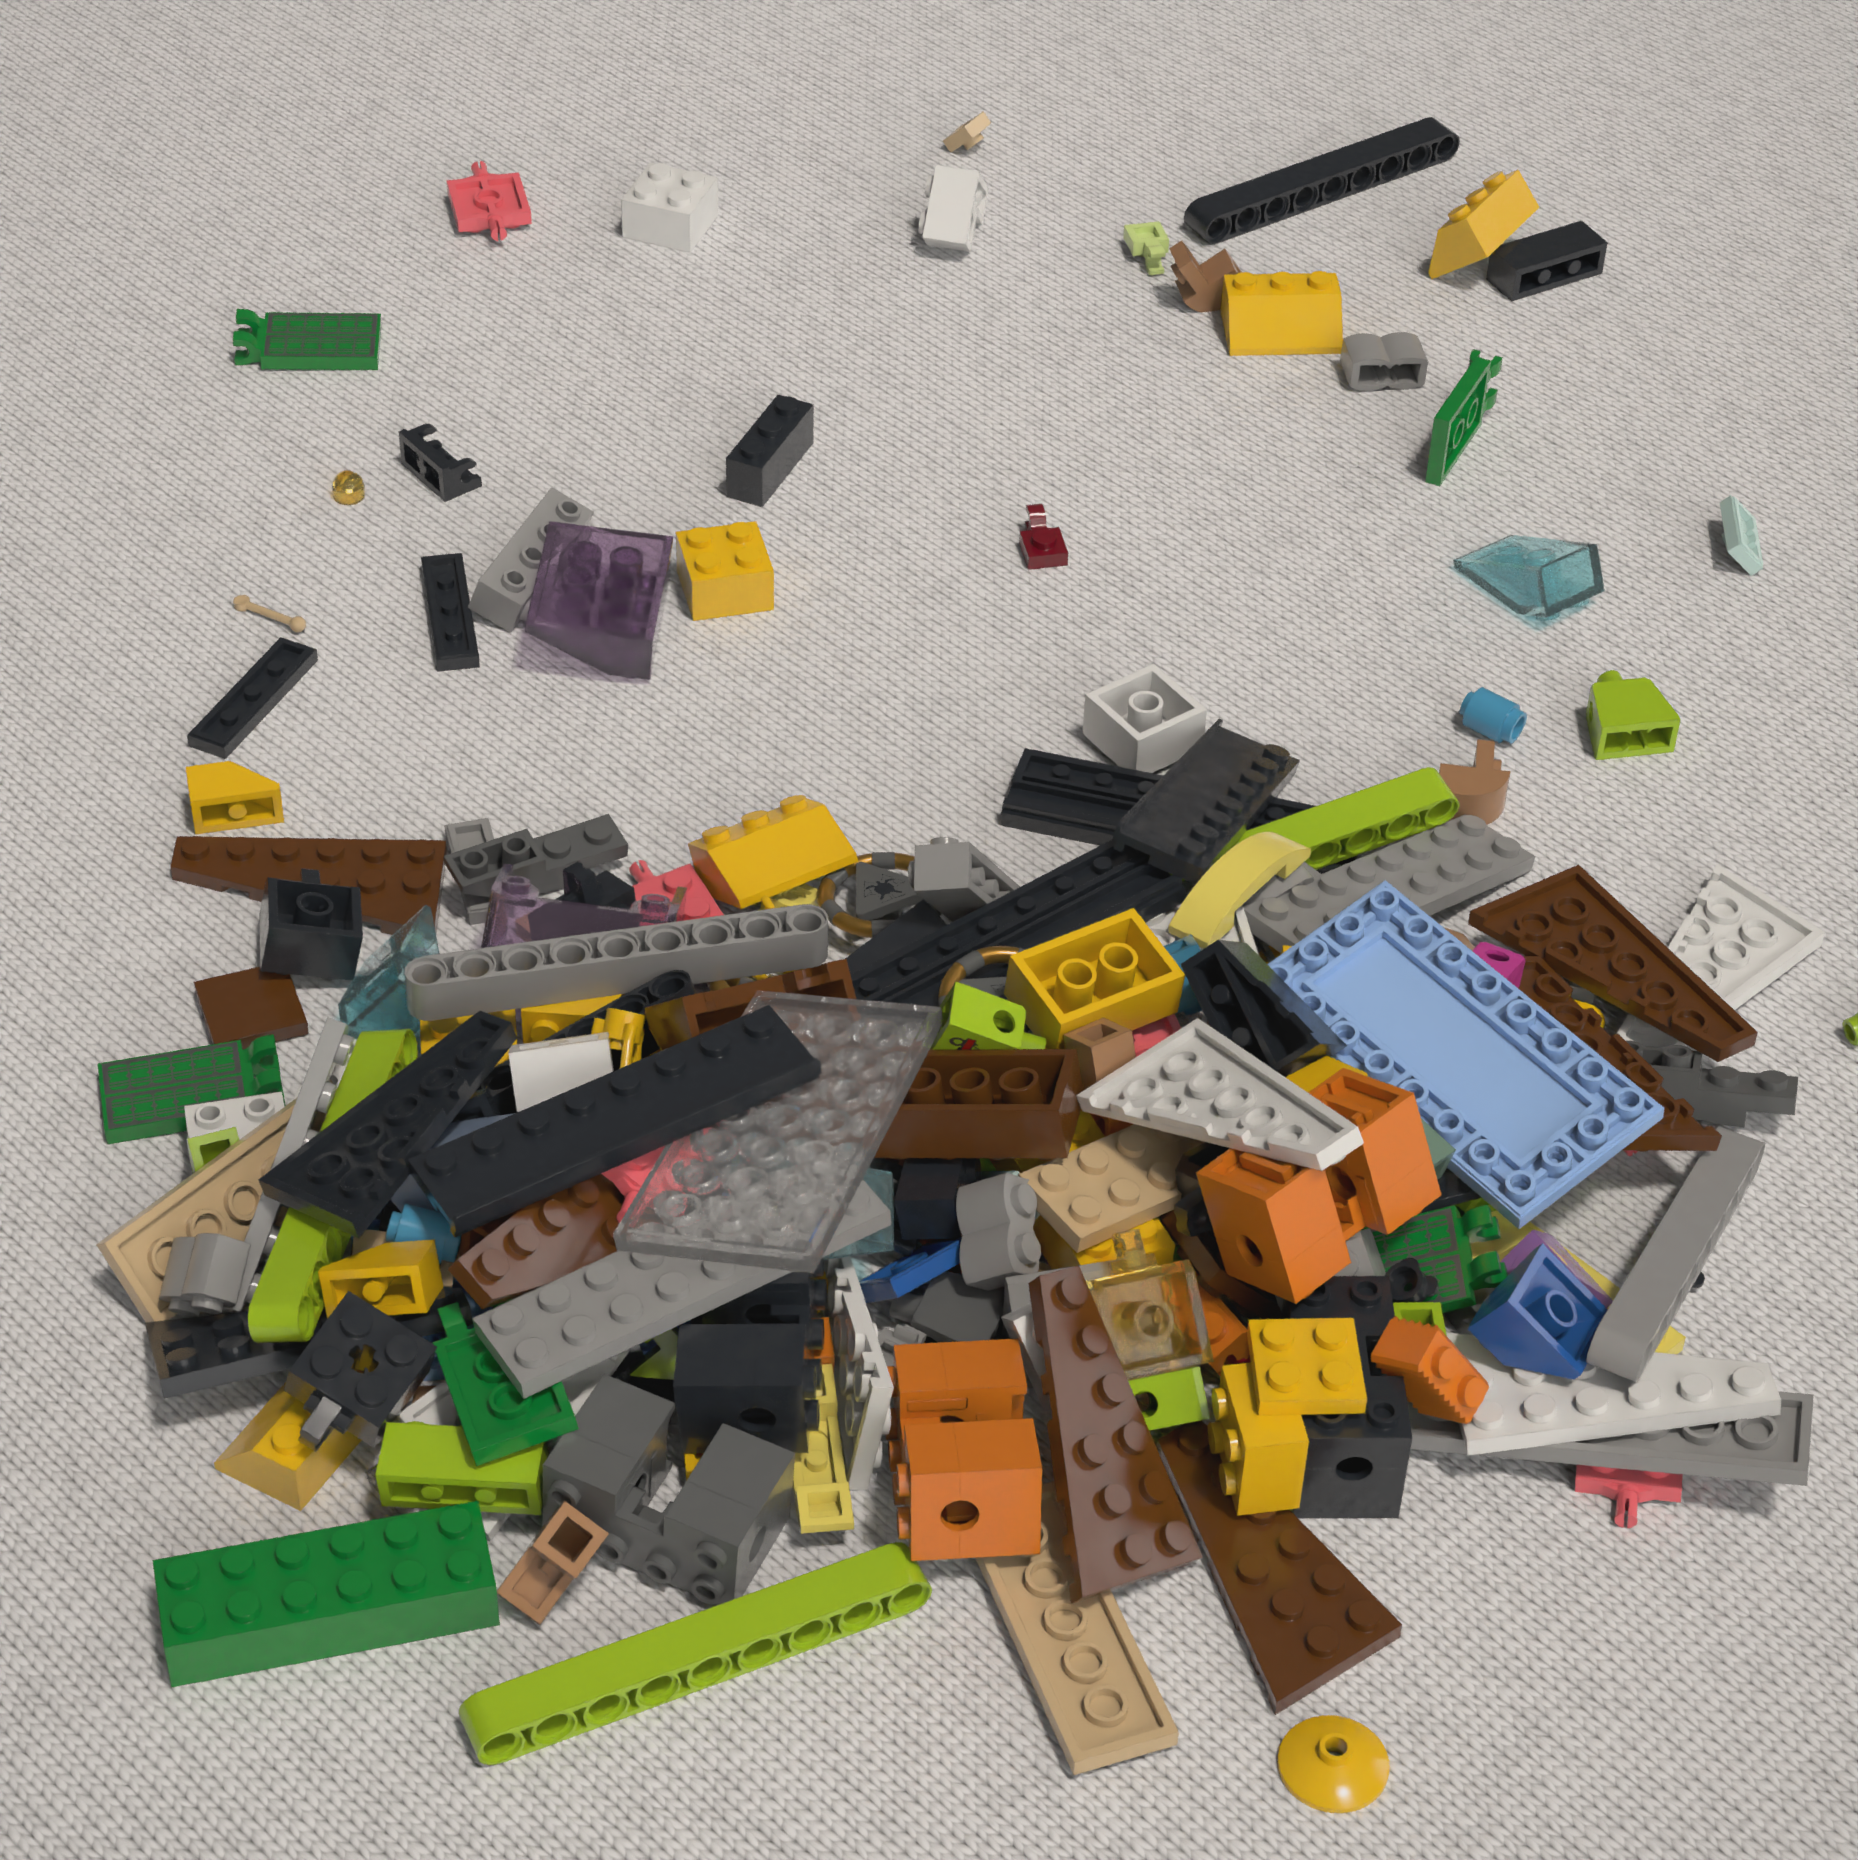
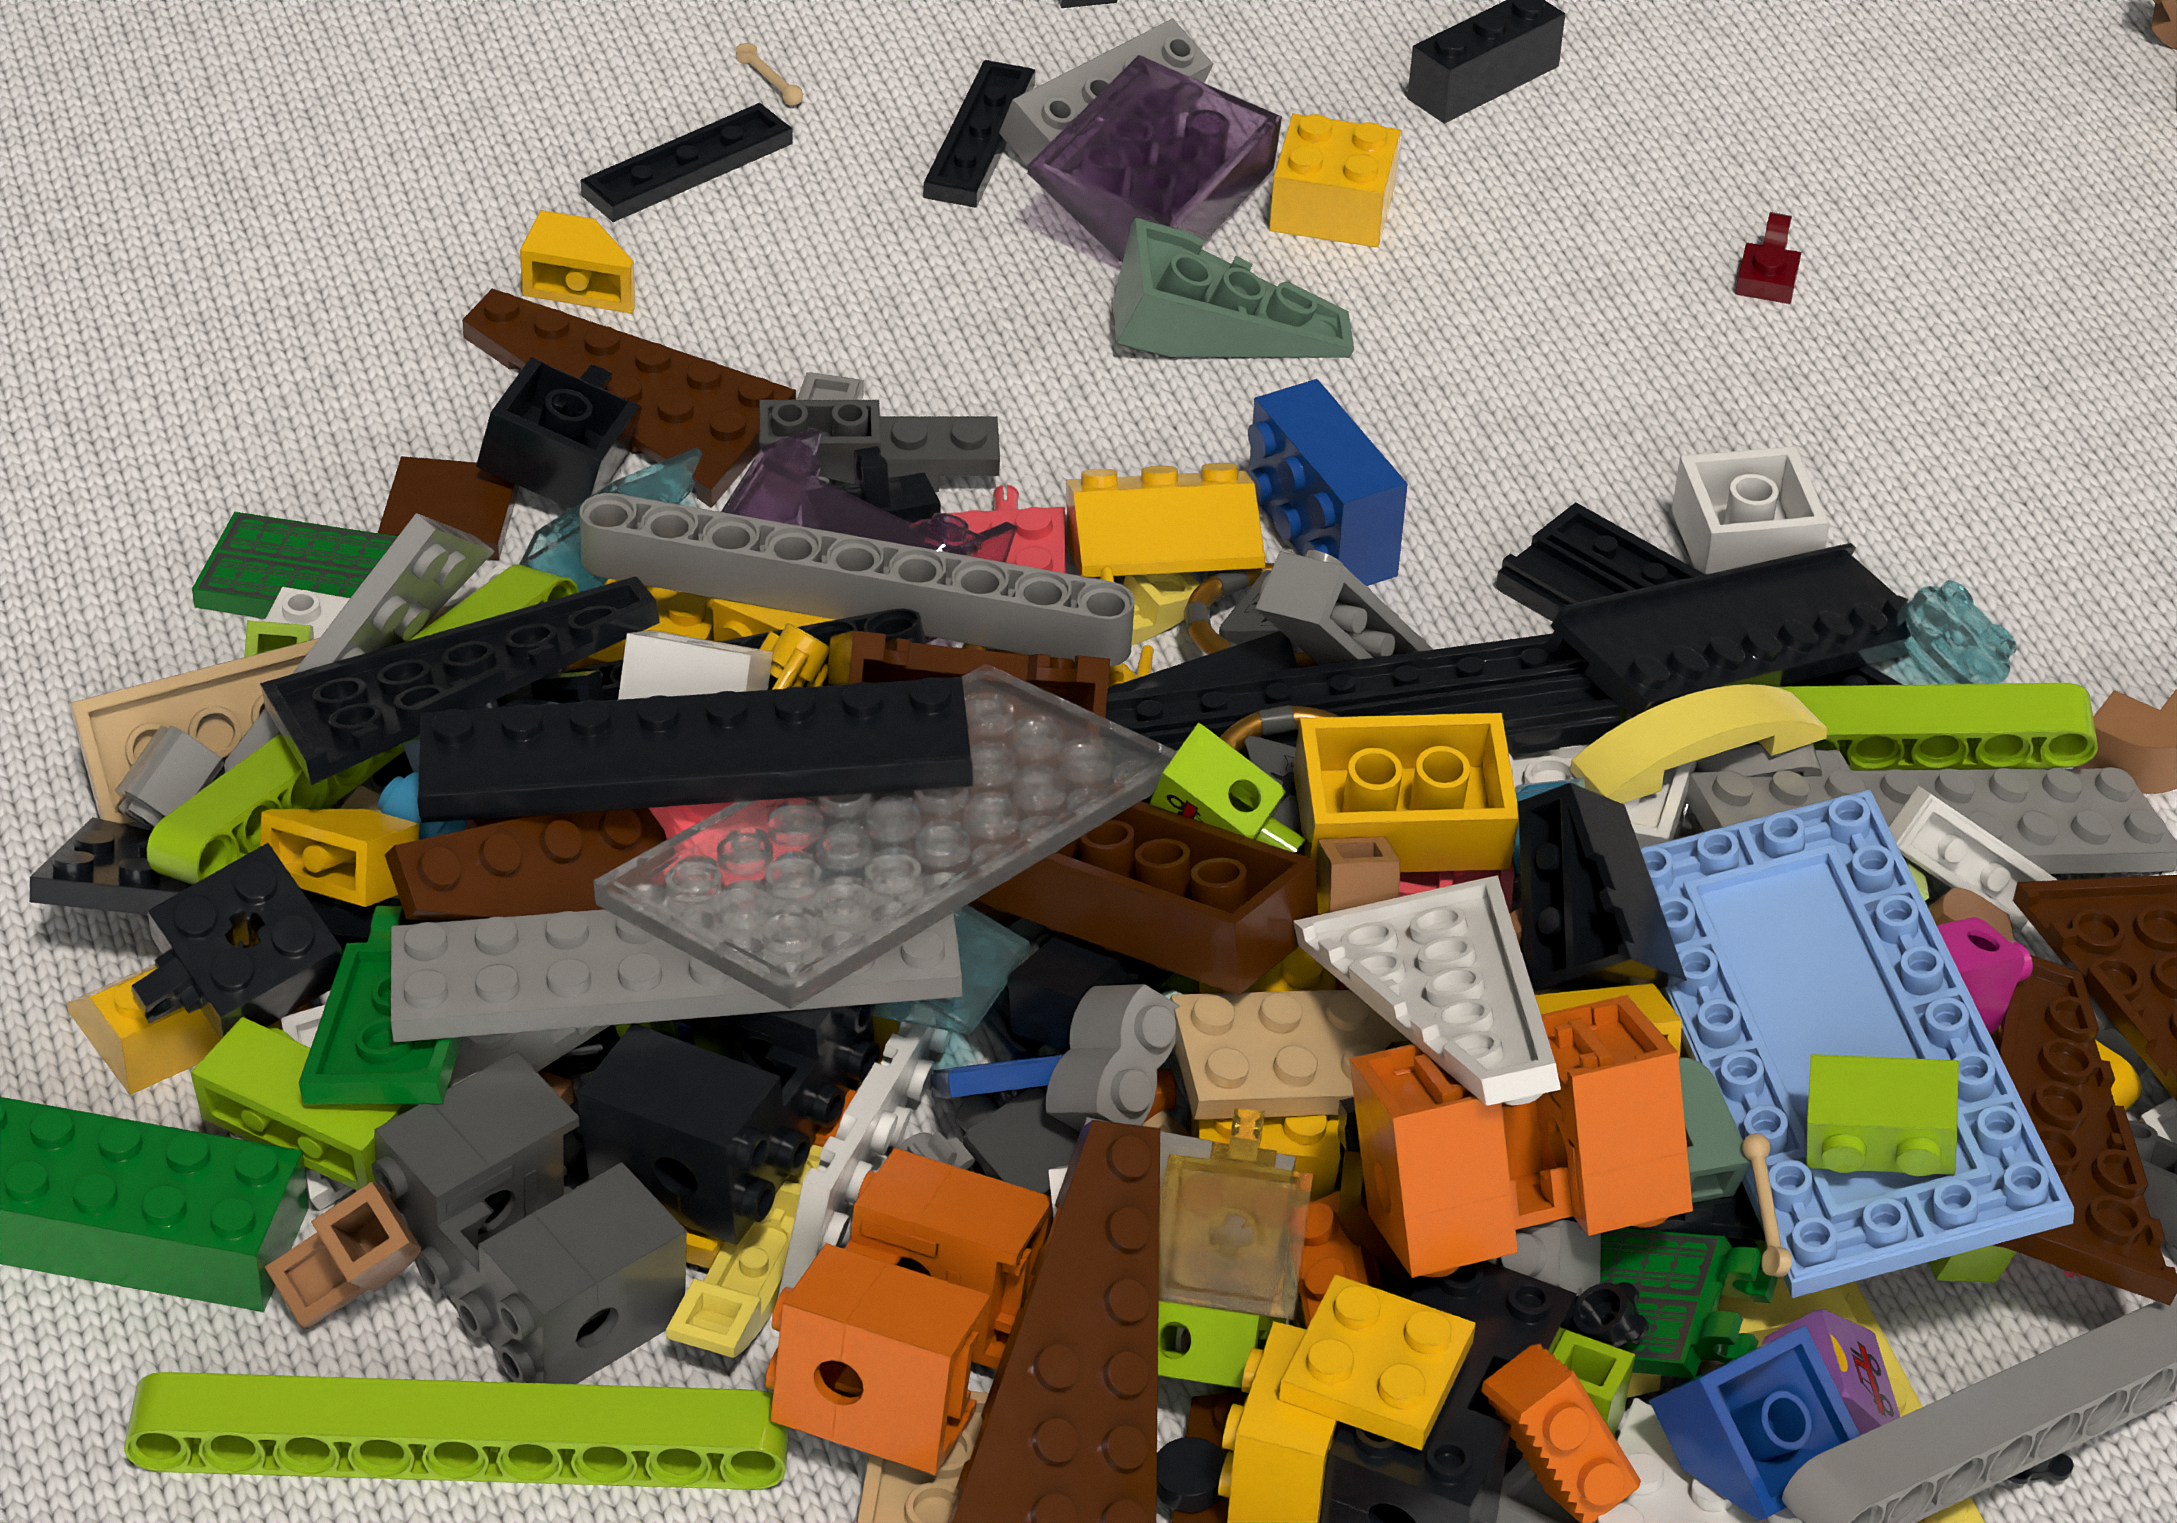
camera: 25 degrees right, 0 degrees up
(689, 690) = (1198, 305): none -> sand green wedge
(867, 788) = (1326, 481): none -> blue brick
(1196, 1488) = (1189, 1474): none -> black tile
(1320, 763) = (1955, 638): none -> clear light blue plate
(1440, 903) = (1962, 853): none -> white tile
(1501, 1208) = (1775, 1260): none -> tan hinge
(1524, 1089) = (1882, 1114): none -> lime brick

